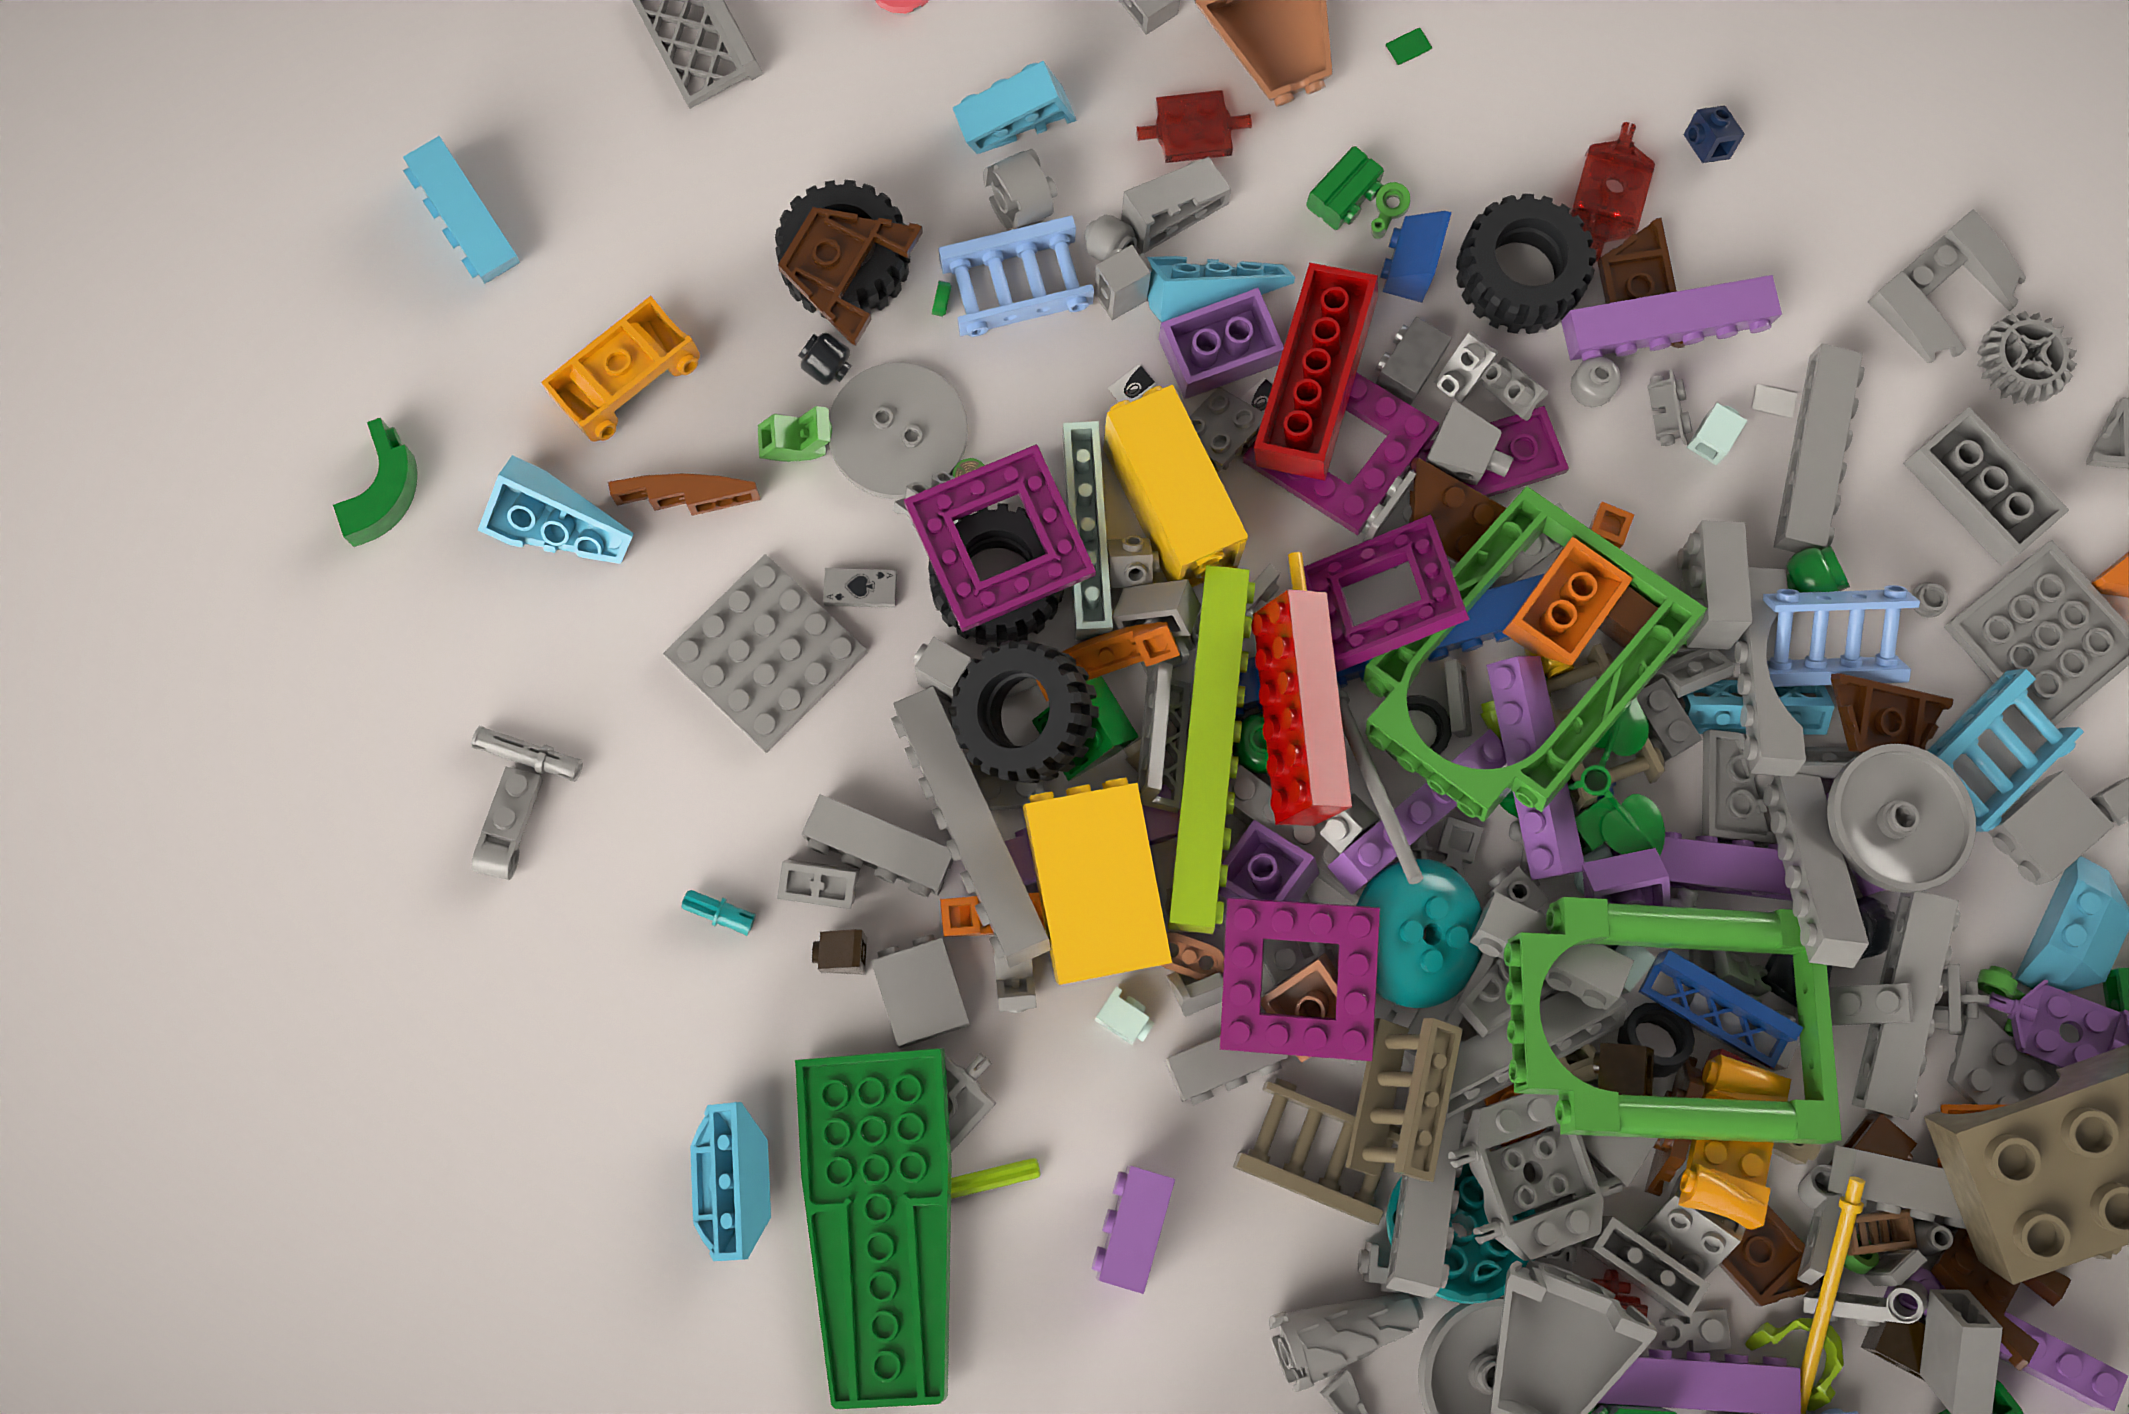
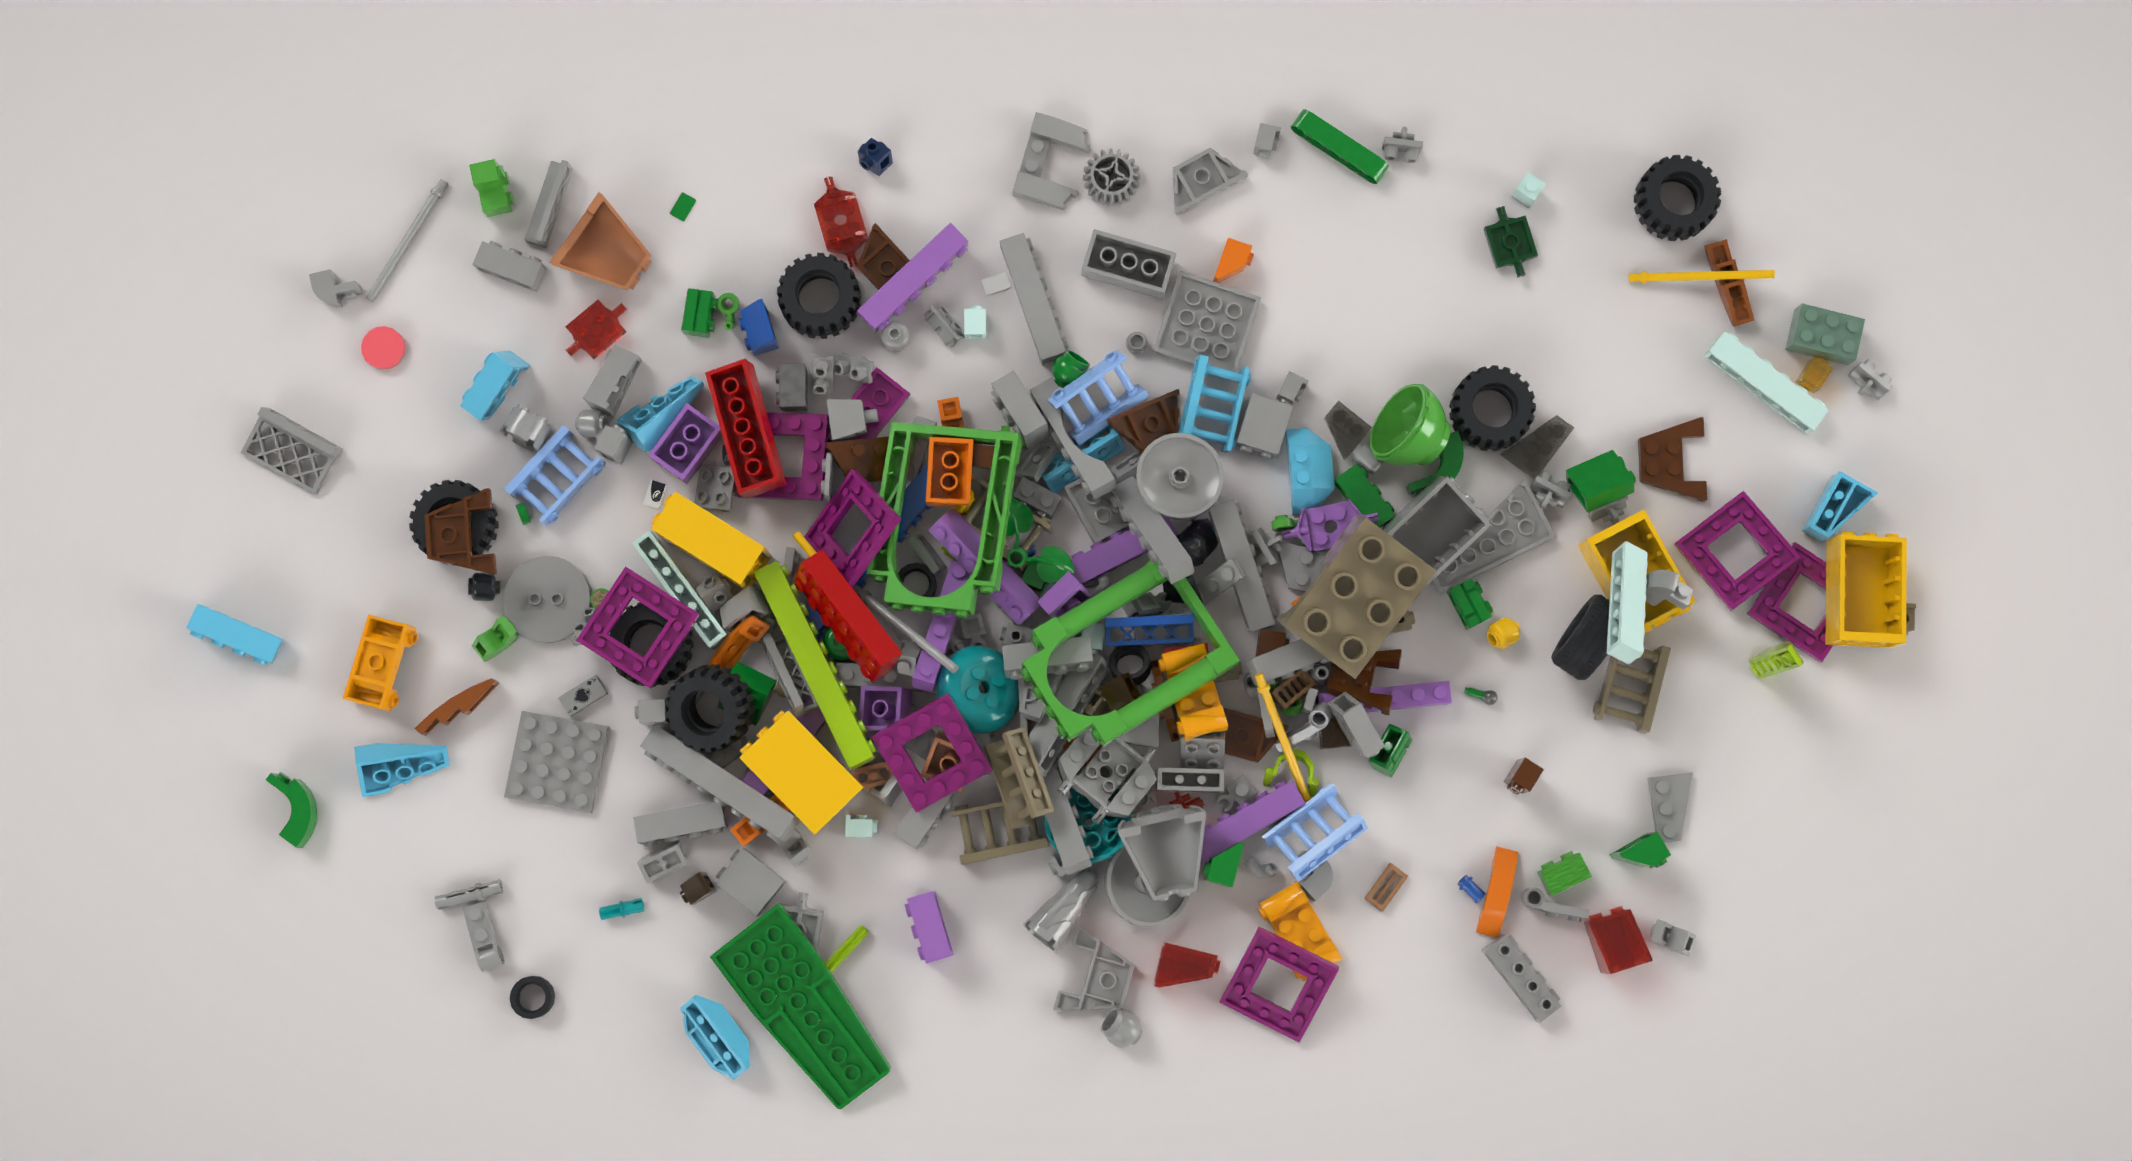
camera: 30 degrees left, 5 degrees up
(494, 932) = (515, 994): none -> black tyre

